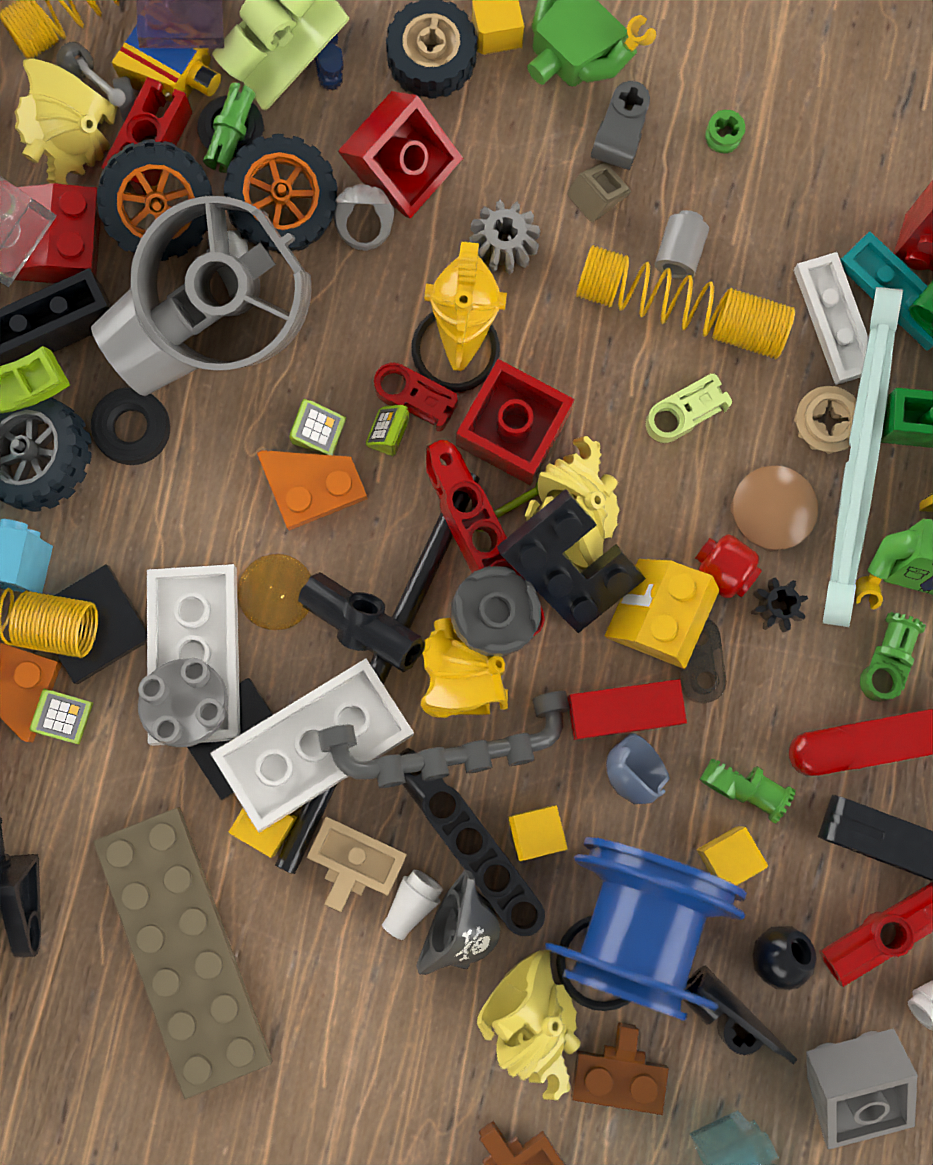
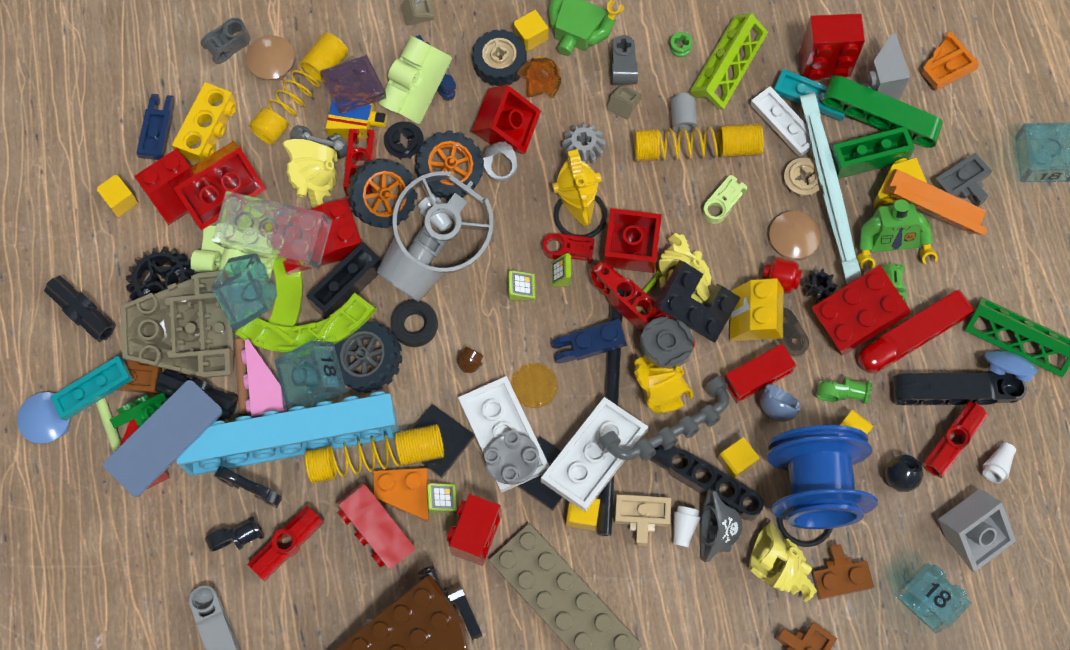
camera: 15 degrees left, 10 degrees down
(81, 792) = (475, 529): none -> red brick
(190, 516) = (469, 360): none -> reddish brown plate
(229, 127) = (406, 140): bright green pin -> none
(311, 484) = (530, 318): orange wing -> none
(361, 621) = (592, 379): black piece -> none
(387, 559) = (591, 341): none -> dark blue hinge
(476, 109) = (538, 82): none -> clear orange piece
(731, 1010) = (888, 513): black panel -> none
(782, 175) = (725, 52): none -> lime fence
(826, 673) = (861, 310): none -> red brick

